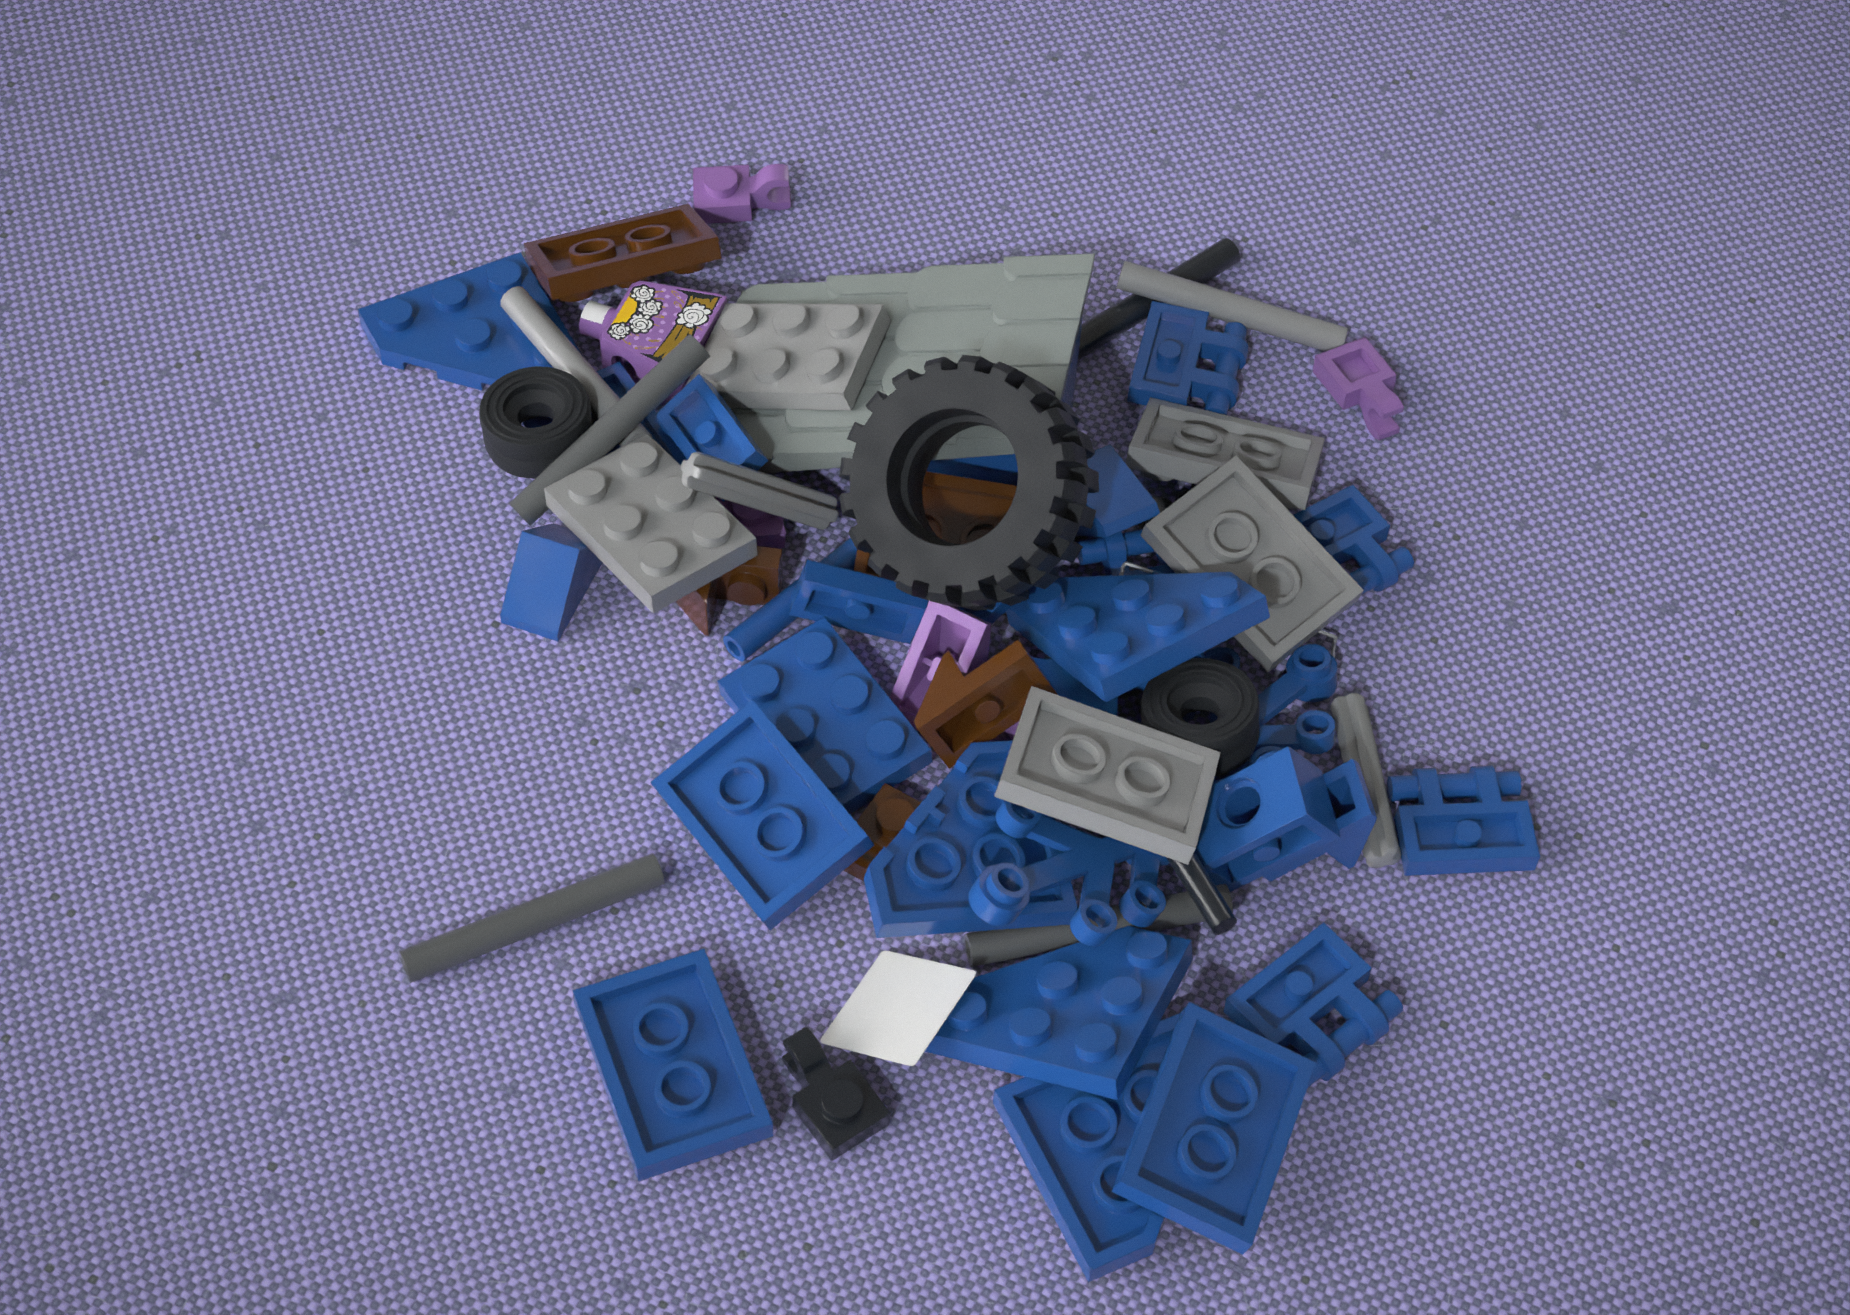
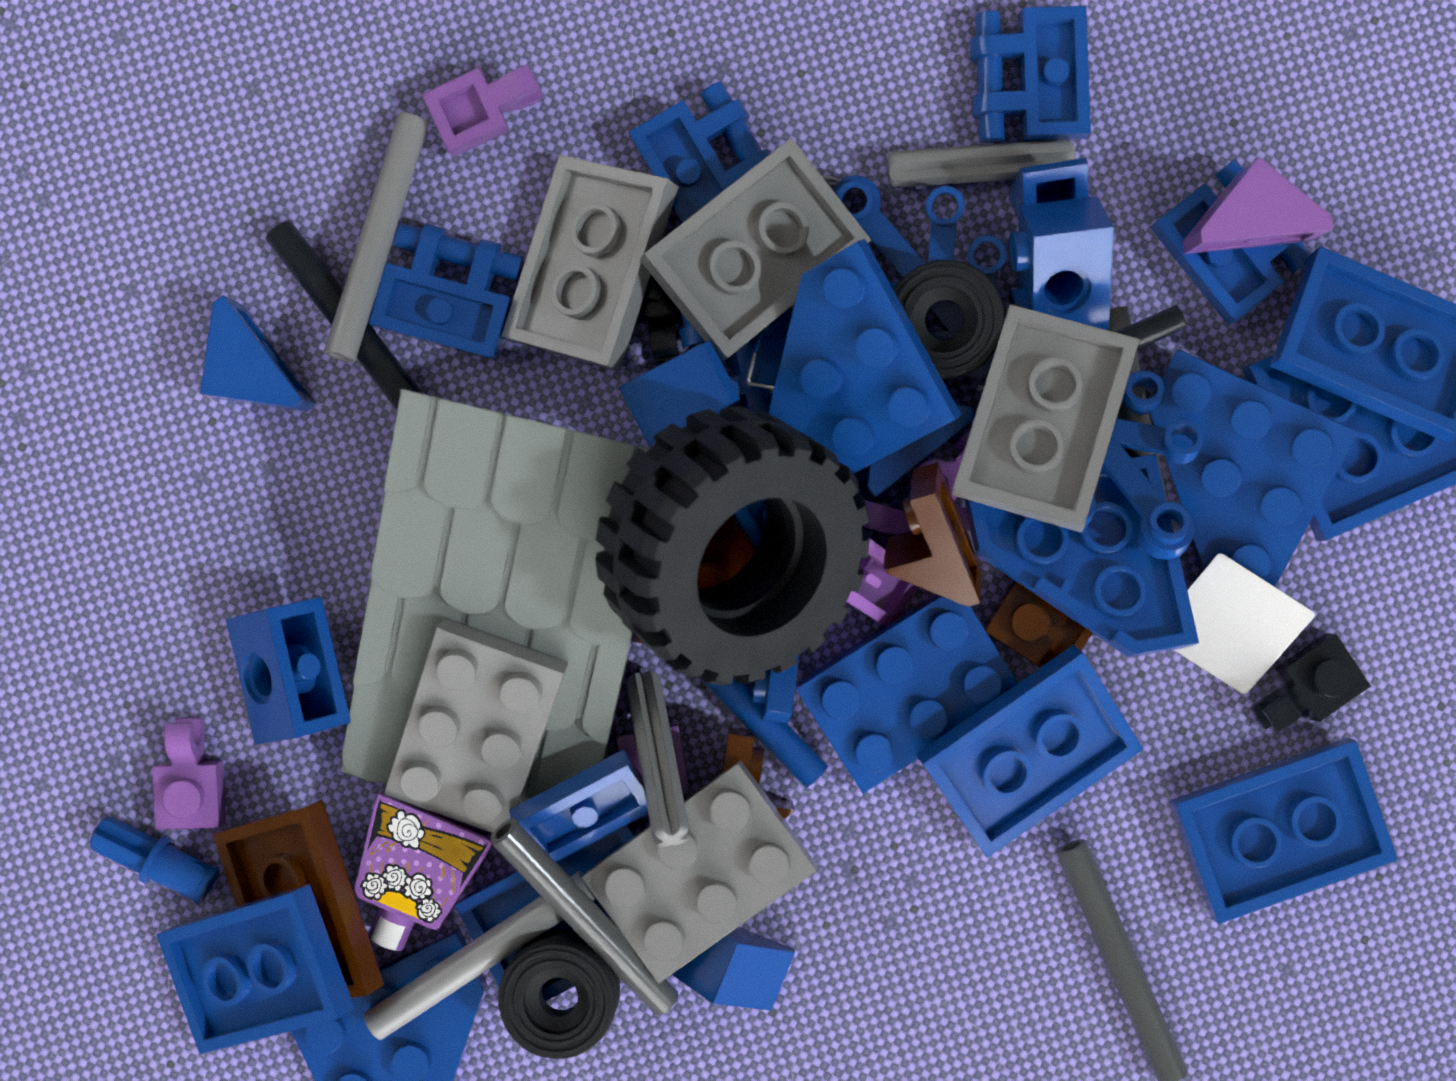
camera: 85 degrees left, 35 degrees up
(571, 218) = (255, 970): none -> blue plate
(665, 170) = (154, 859): none -> blue axle
(837, 242) = (288, 671): none -> blue brick
(1116, 219) = (244, 363): none -> blue slope
(1341, 984) = (1258, 211): none -> medium lavender slope

